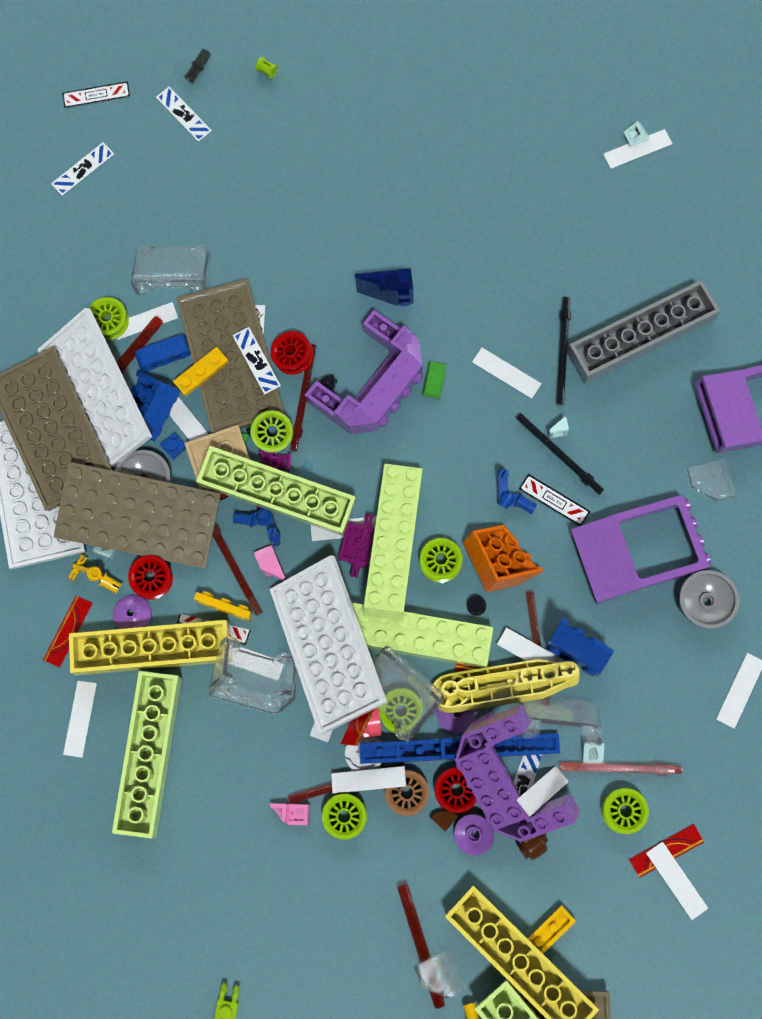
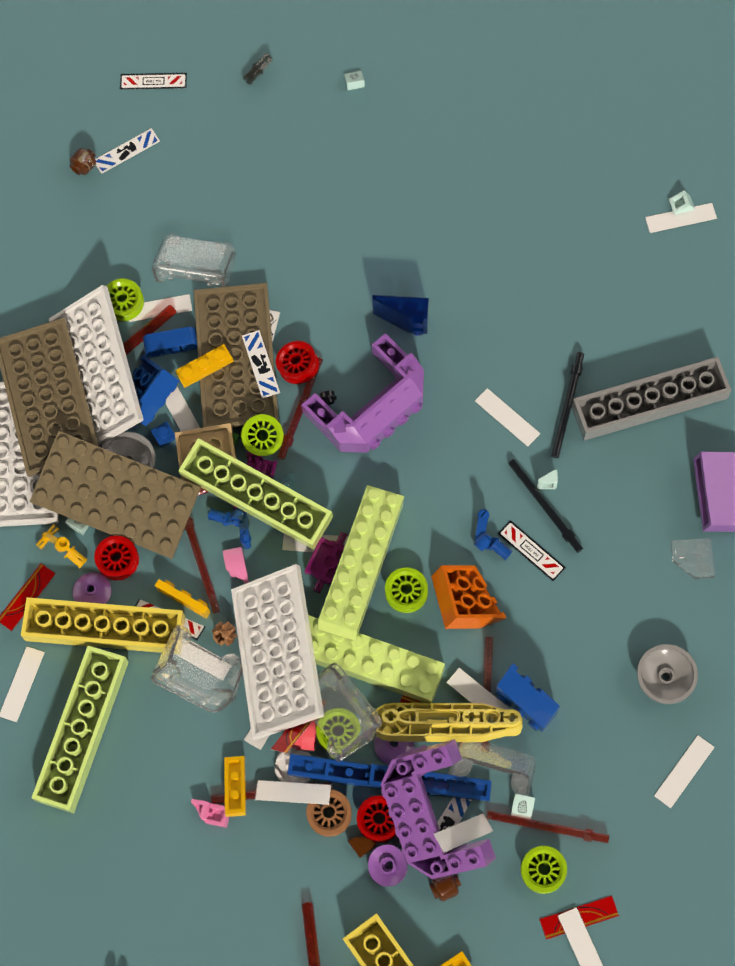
camera: 10 degrees right, 5 degrees down
(41, 186) = (82, 161): none -> reddish brown head
(183, 114) = (235, 113): white sticker -> none
(266, 67) = (325, 81): lime bush -> none
(271, 634) = (224, 633): none -> medium nougat gear
(295, 62) = (354, 80): none -> light aqua slope
(310, 784) = (235, 786): none -> yellow plate
(327, 821) = (278, 834): lime wheel -> none
(434, 379) = (433, 412): bright green tile -> none
(476, 605) = (433, 641): black tile -> none
(608, 557) = (573, 615): medium lavender window -> none

